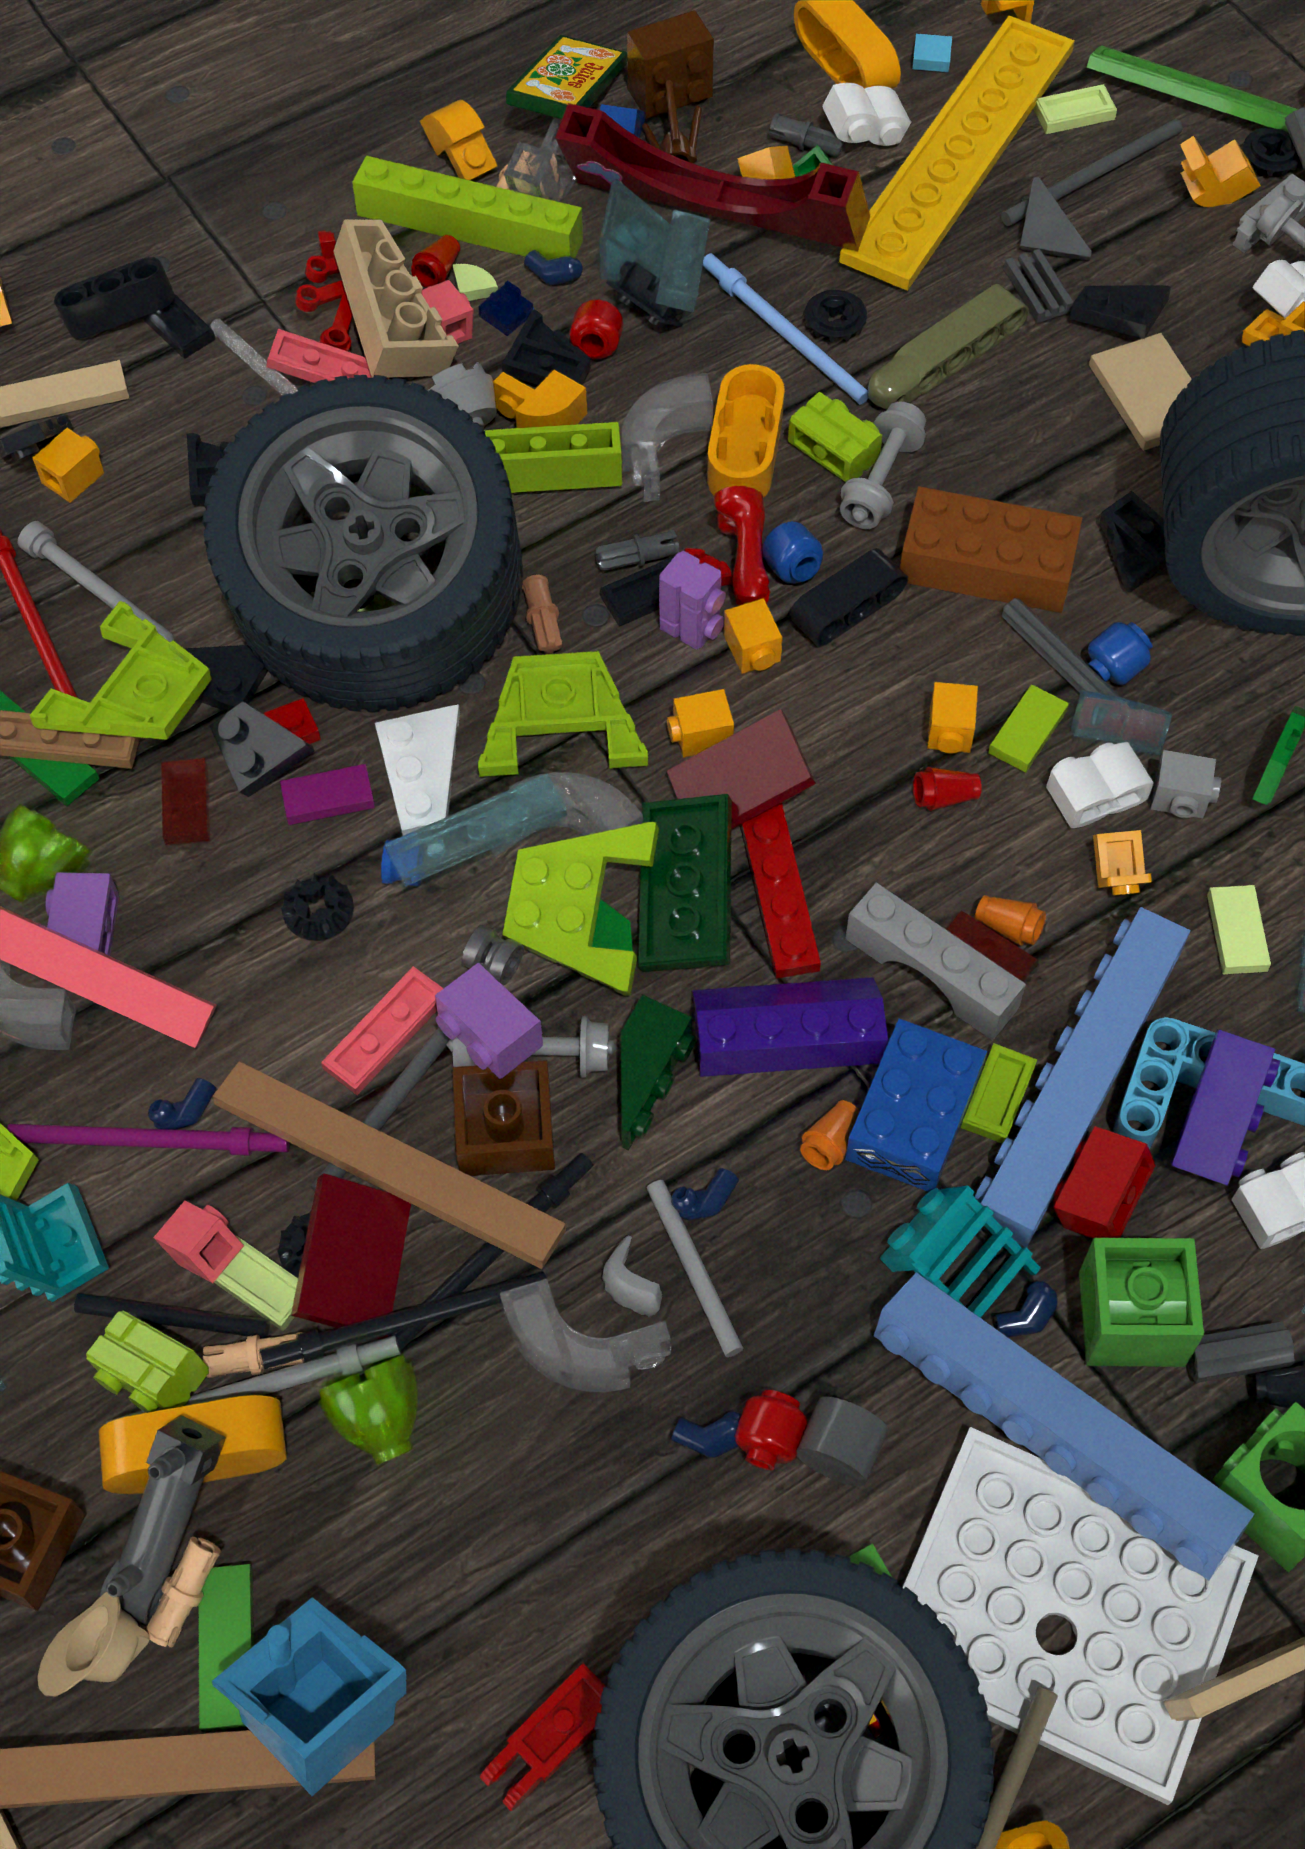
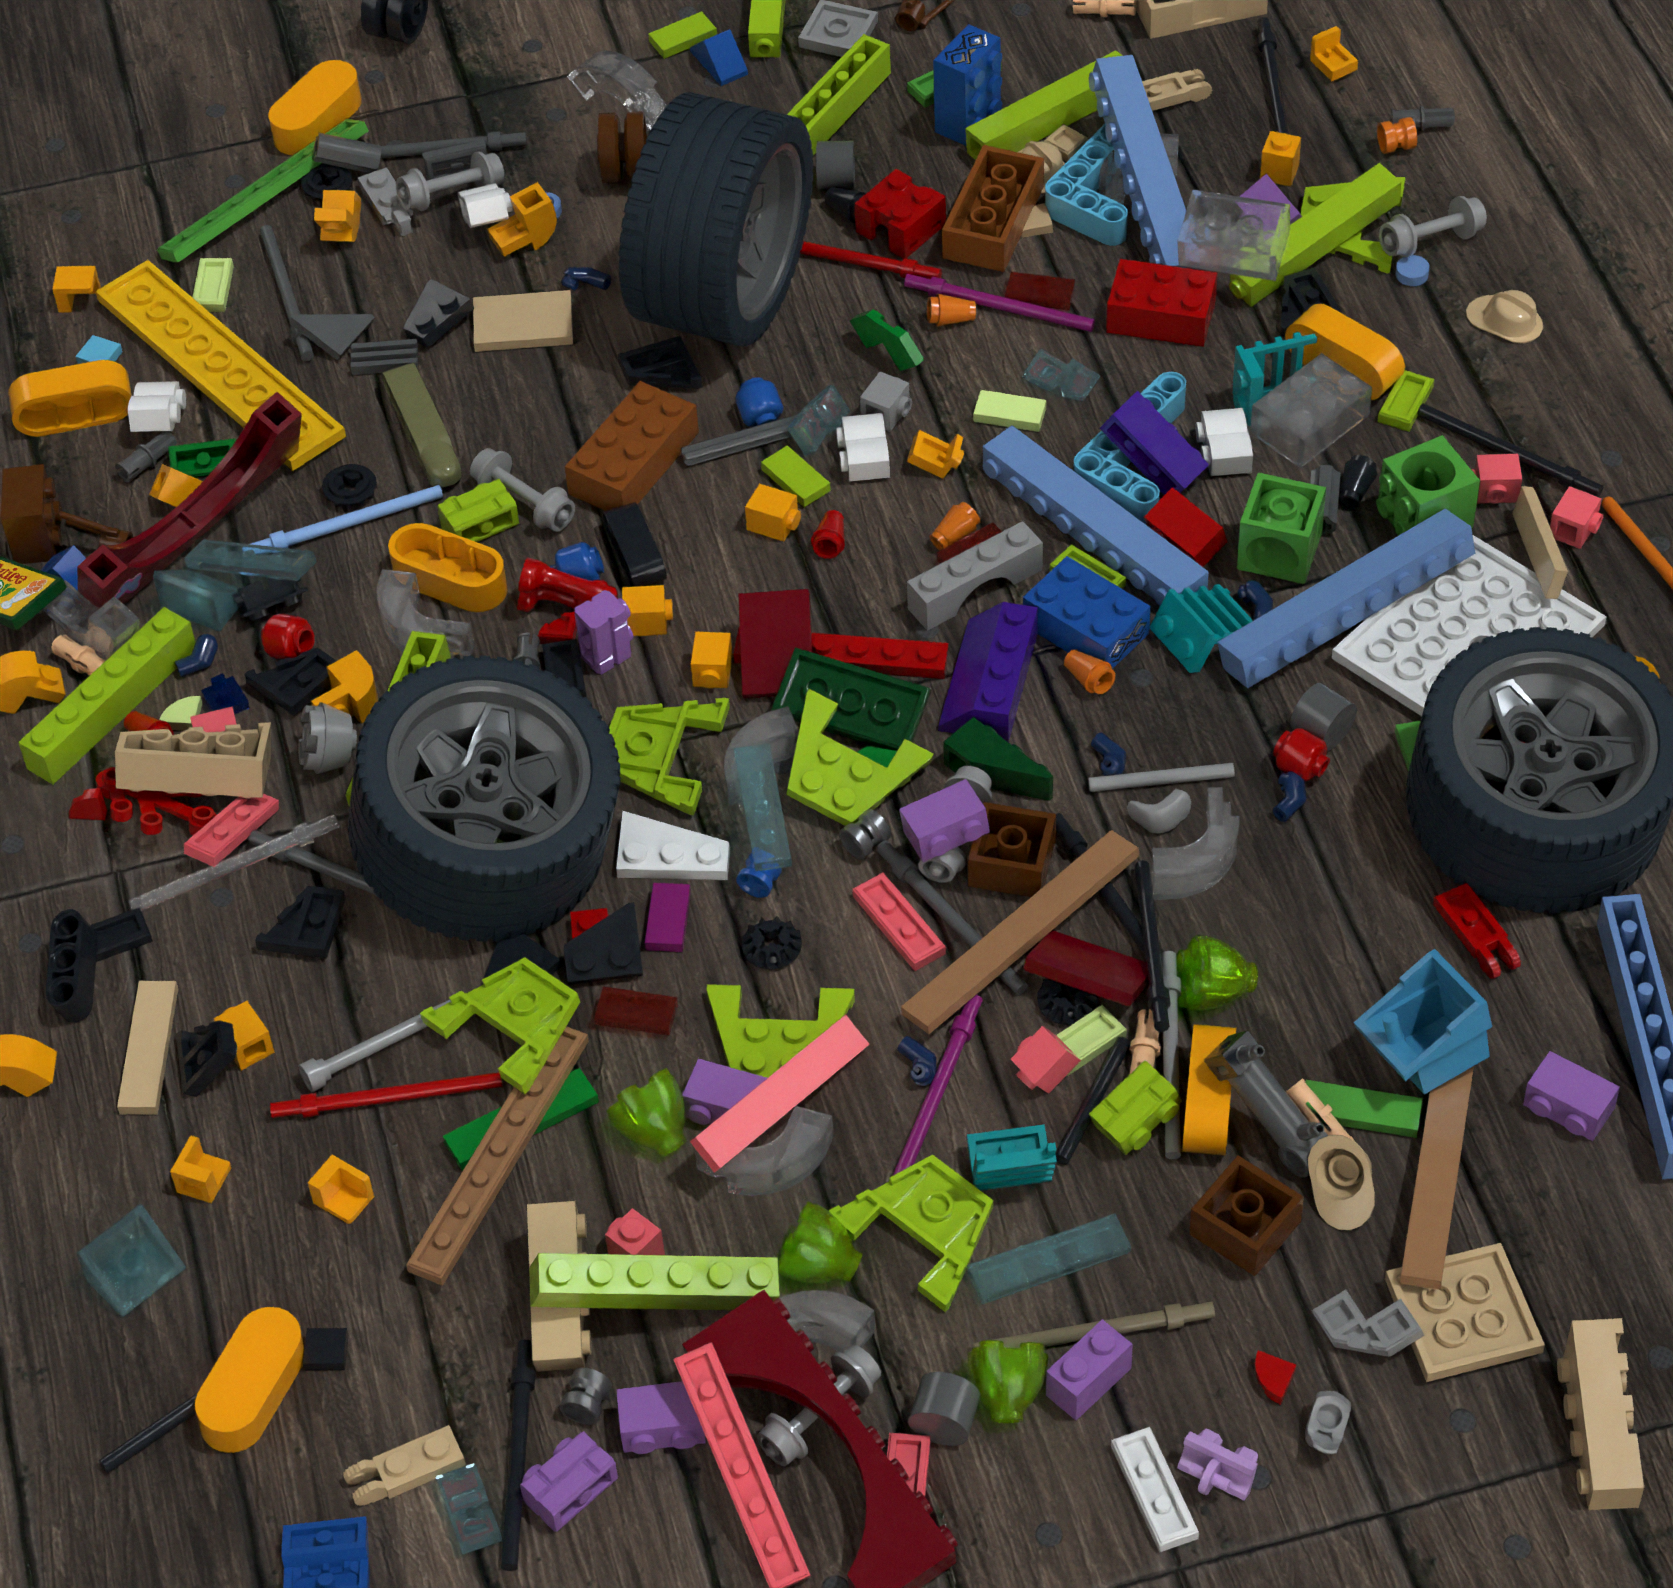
camera: 70 degrees left, 10 degrees down
(171, 942) = (768, 1044): none -> lime wing

